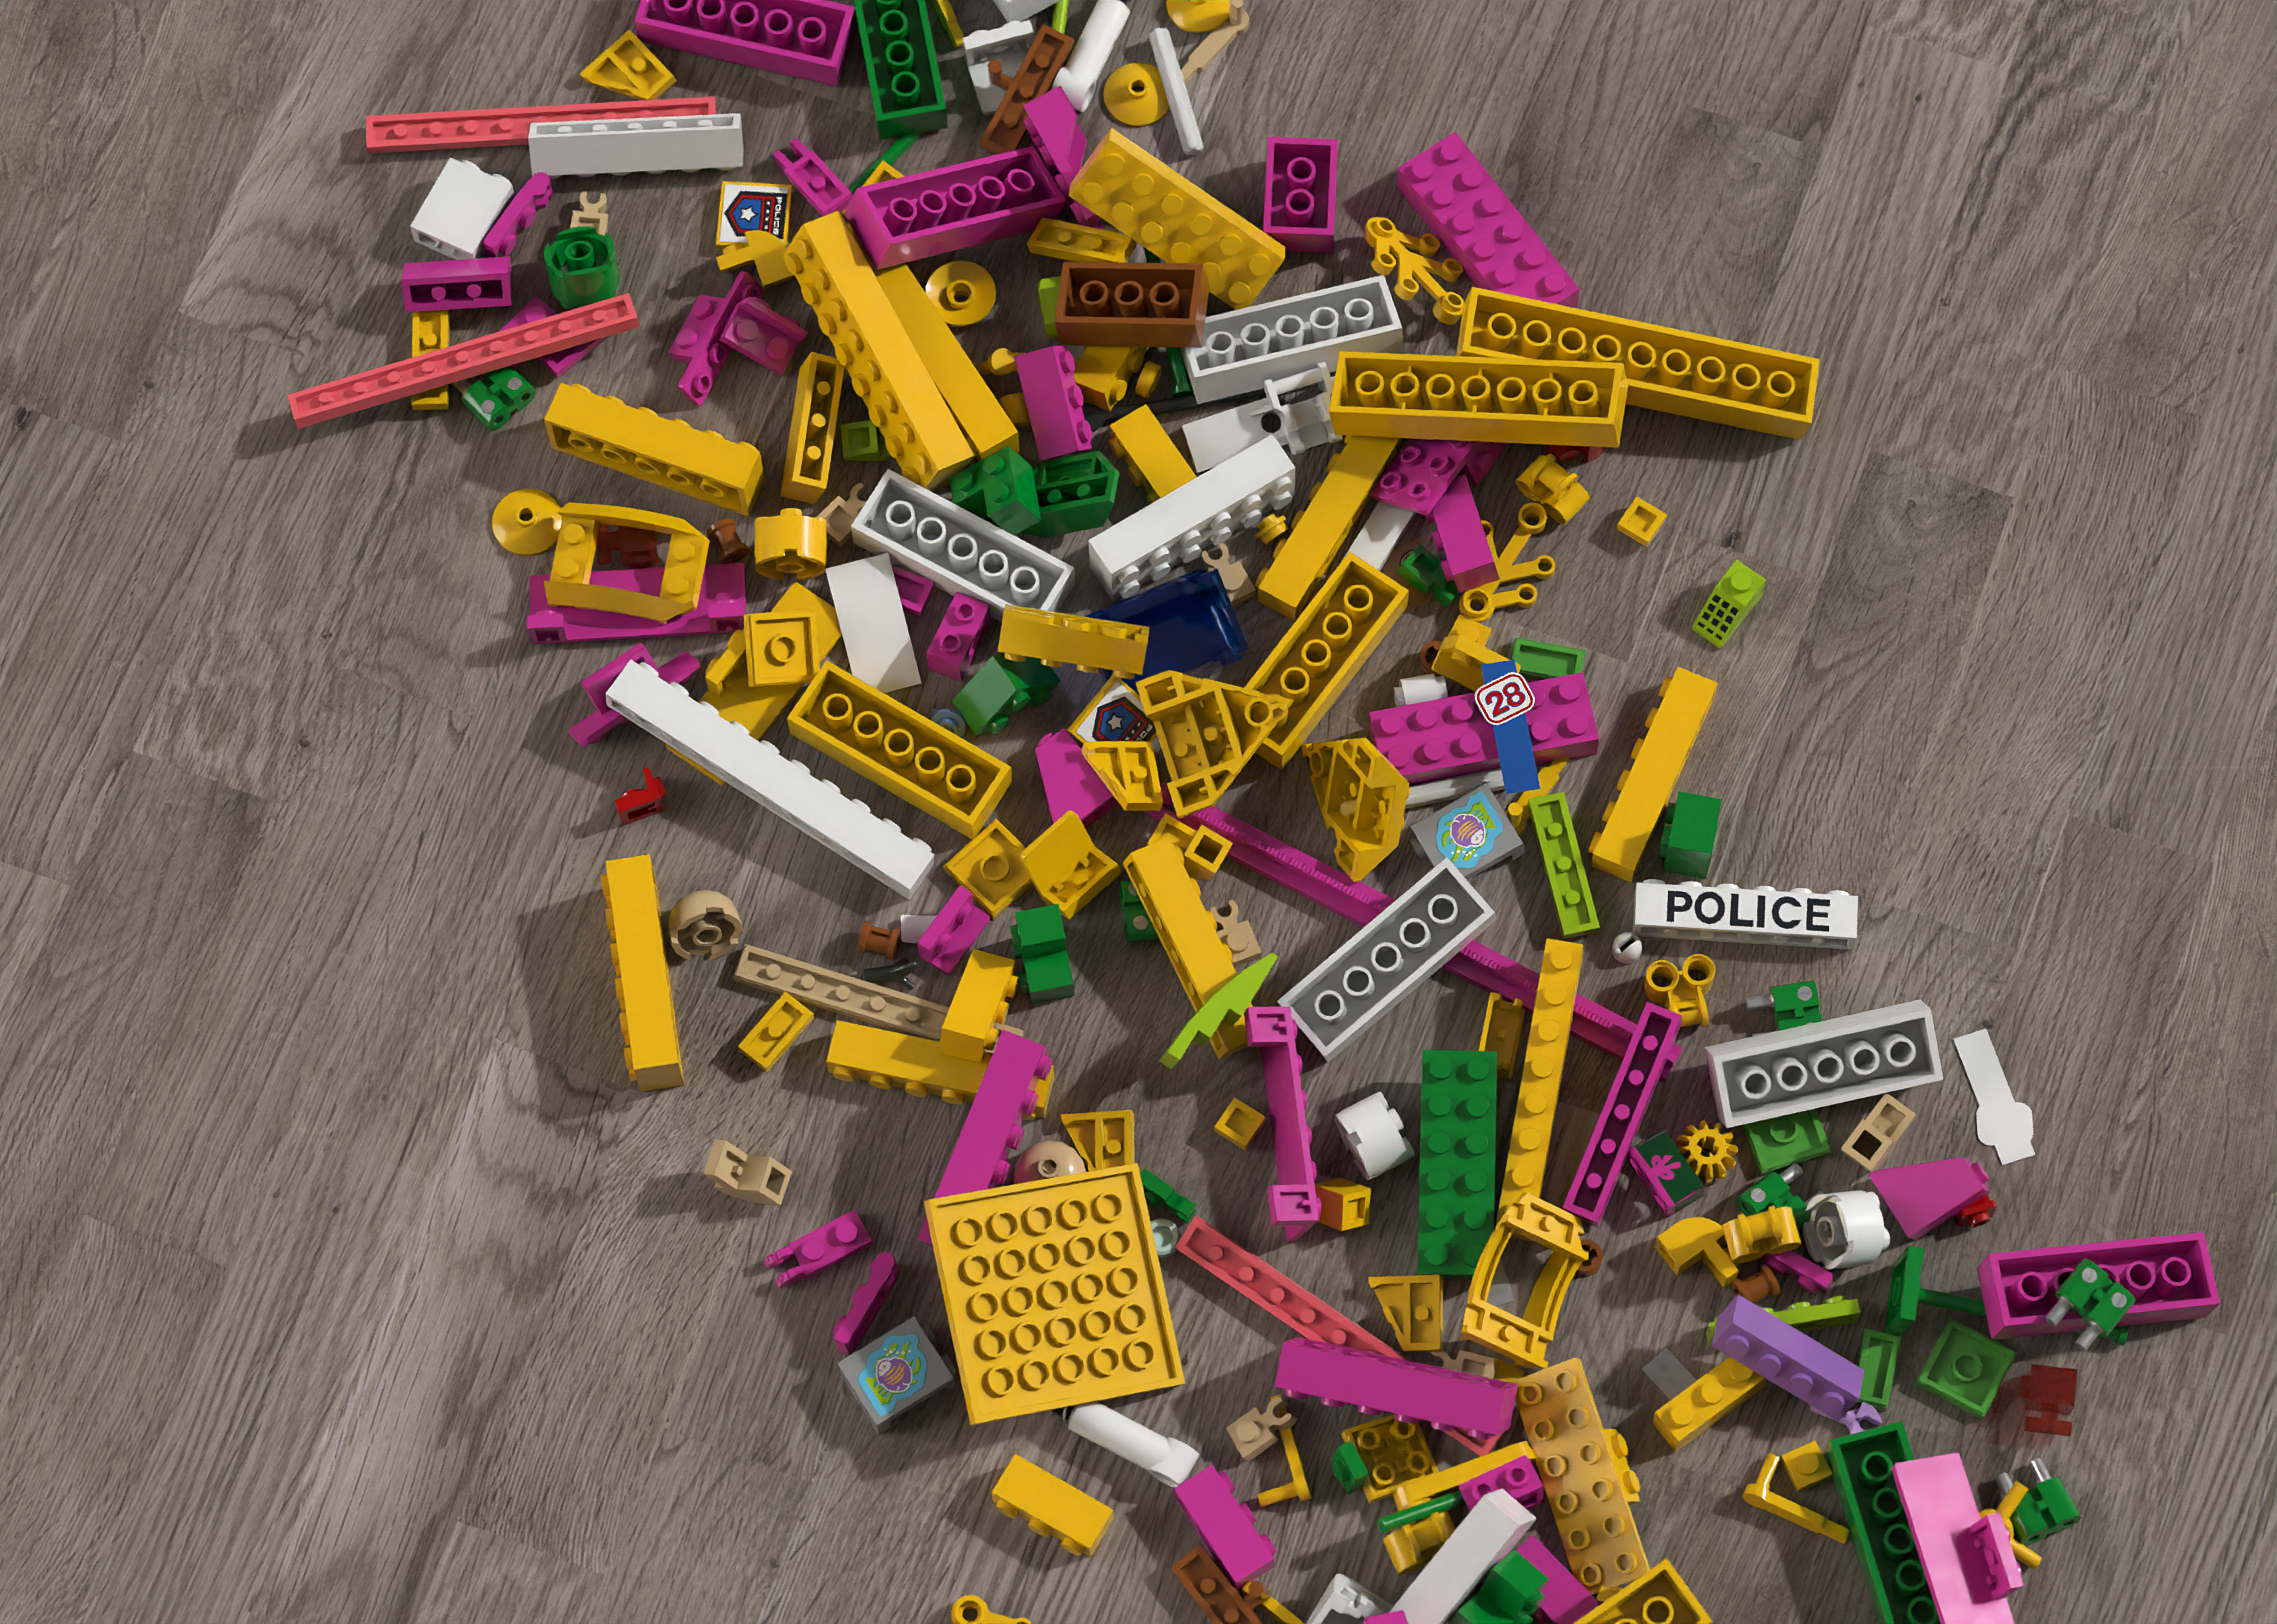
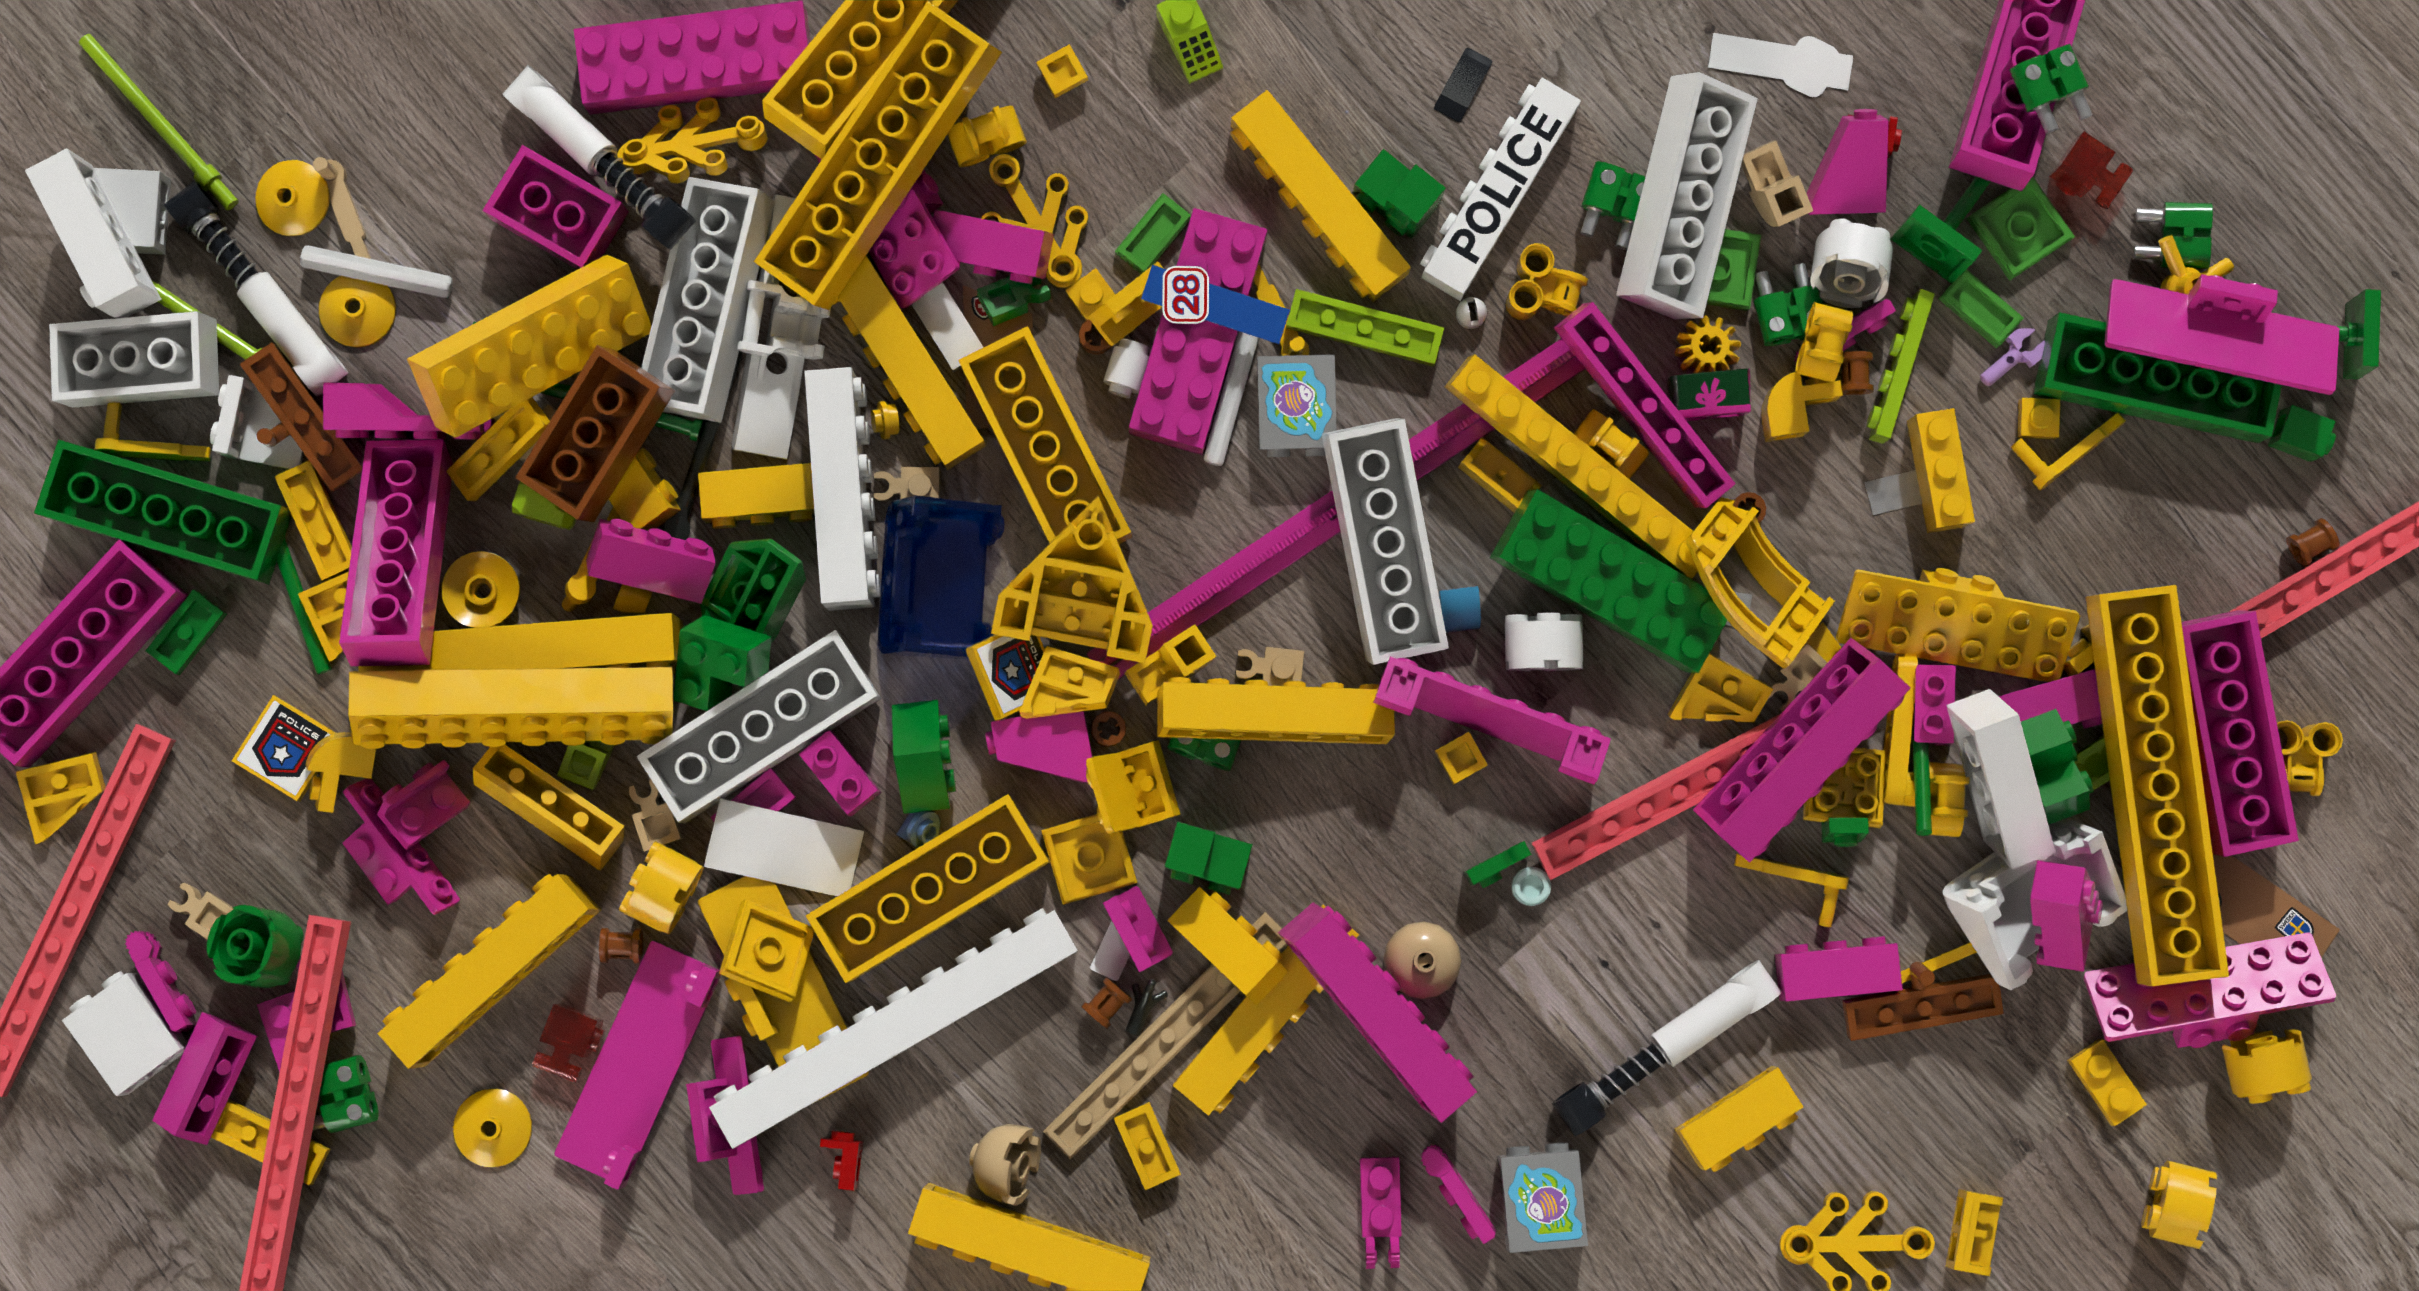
camera: 70 degrees left, 15 degrees up
(576, 552) = (560, 1101): yellow wedge -> none
(636, 145) = (148, 828): white brick -> none
(746, 1176) = (1279, 1244): tan brick -> none
(807, 97) = (186, 632): none -> green plate
(814, 179) = (282, 670): dark pink hinge -> none
(954, 140) = (316, 520): none -> yellow plate
(1054, 1293) = (1554, 1020): yellow plate -> none
(1073, 640) = (920, 670): yellow wedge -> none
(1102, 1137) = (1417, 893): yellow wing -> none
(1118, 823) = (1103, 718): none -> dark orange bush
(1148, 379) = (669, 456): yellow tile -> none
(1226, 1004) = (1354, 710): lime slope -> none
(1256, 1429) = (1762, 895): tan plate -> none
(1343, 1203) = (1587, 702): yellow panel -> none
(1359, 799) = (1208, 482): yellow wedge -> none
(1365, 1058) = (1460, 609): none -> dark azure brick
(1384, 136) = (596, 155): none -> piece
(1574, 1113) = (1611, 443): none -> yellow piece
(1788, 1358) = (1949, 382): medium lavender brick -> none
(1819, 845) = (1463, 84): none -> black sticker

